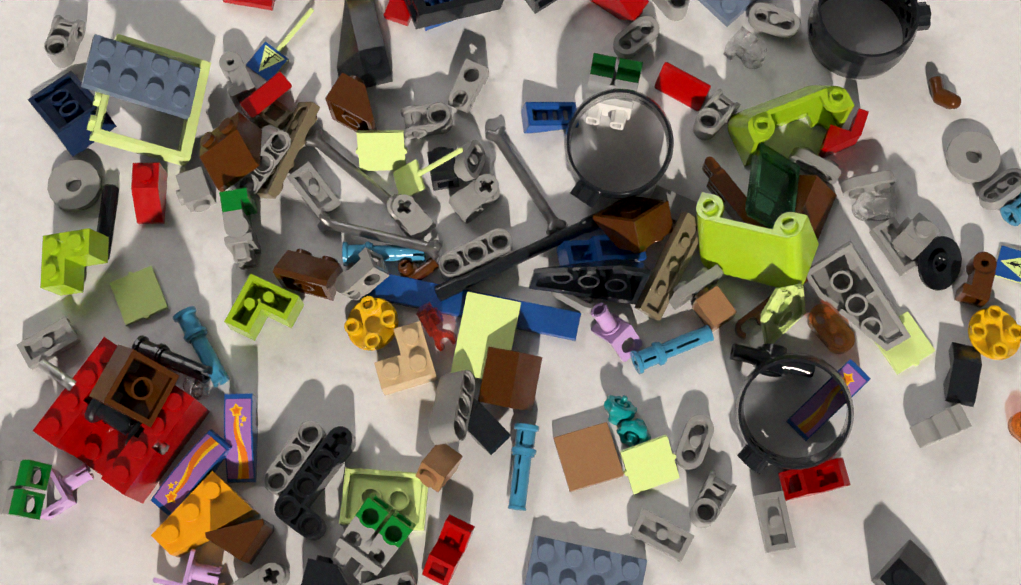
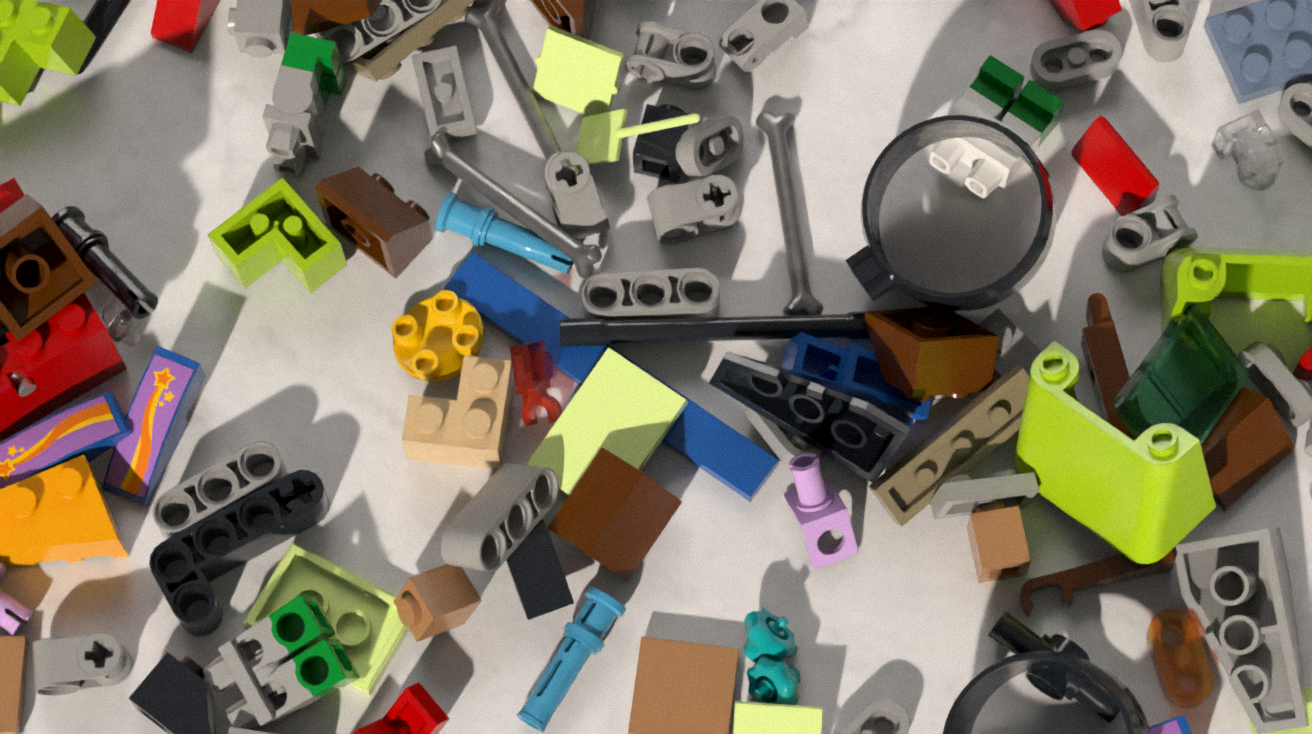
camera: 25 degrees right, 5 degrees down
(139, 295) = (101, 146): yellowish green piece -> none
(196, 335) = (158, 243): dark azure pin -> none
(243, 540) = (84, 579): reddish brown slope -> none
(363, 275) = (456, 255): light grey leg -> none
(415, 270) = (547, 285): reddish brown arm -> none
(540, 125) = (865, 110): blue slope -> none
(660, 352) = (960, 579): dark azure pin -> none
(782, 312) = (1105, 591): yellowish green tile -> none

